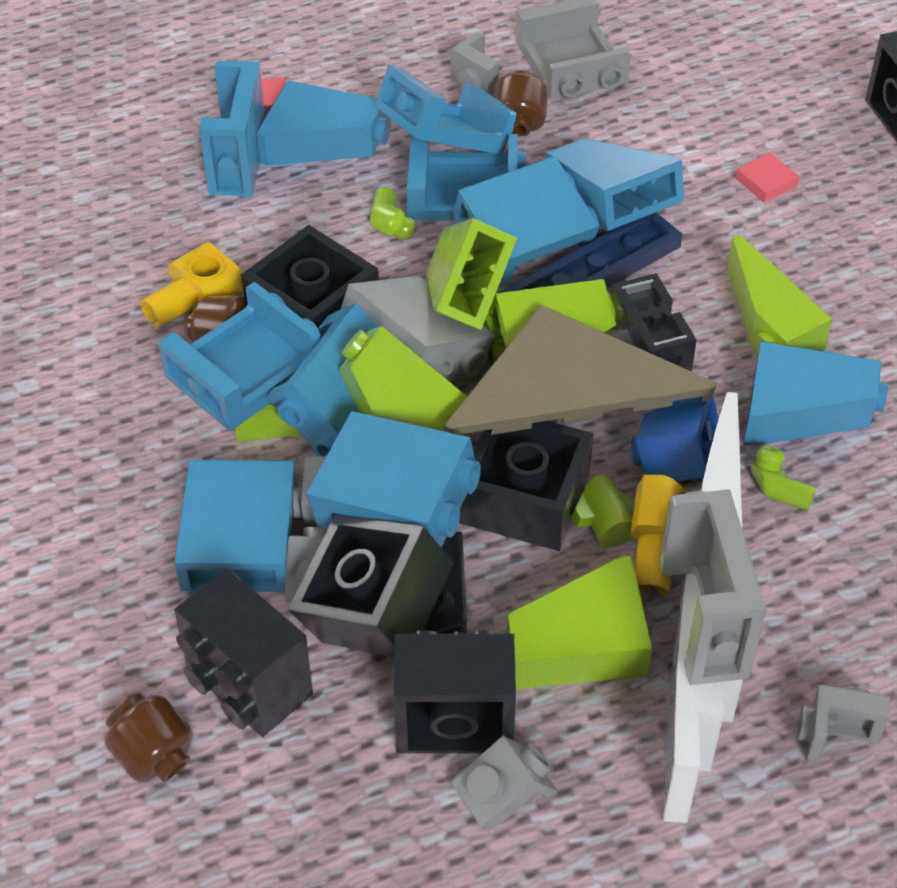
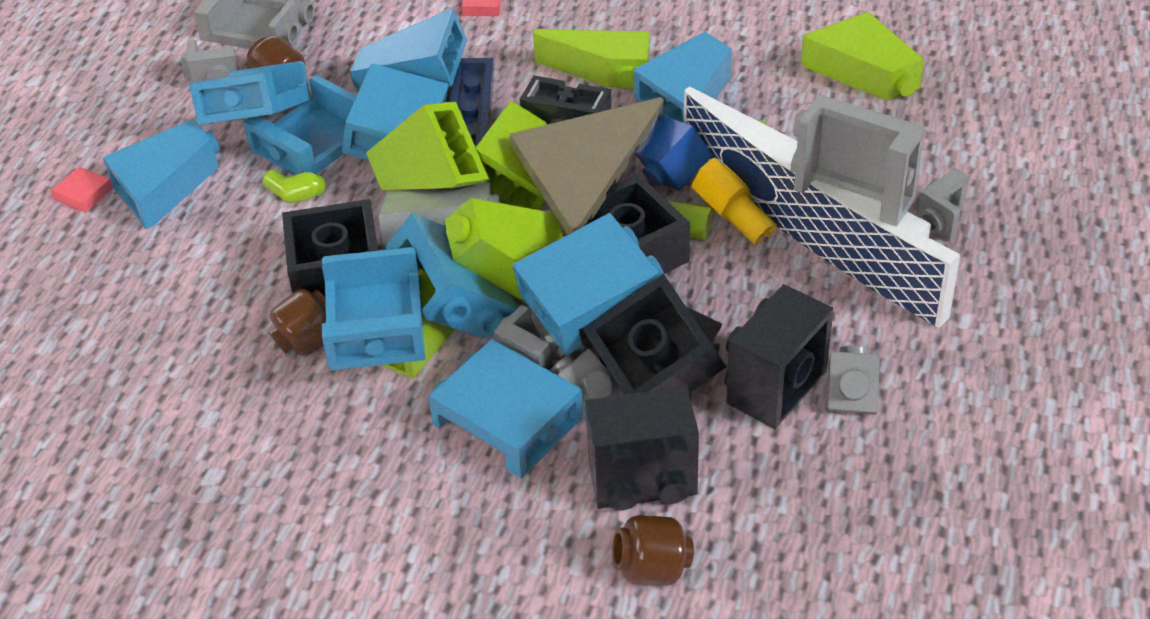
camera: 50 degrees left, 5 degrees down
(194, 276) = (236, 315): yellow piece -> none
(231, 141) = (110, 192): dark azure panel -> none
(583, 631) = (774, 259): lime slope -> none

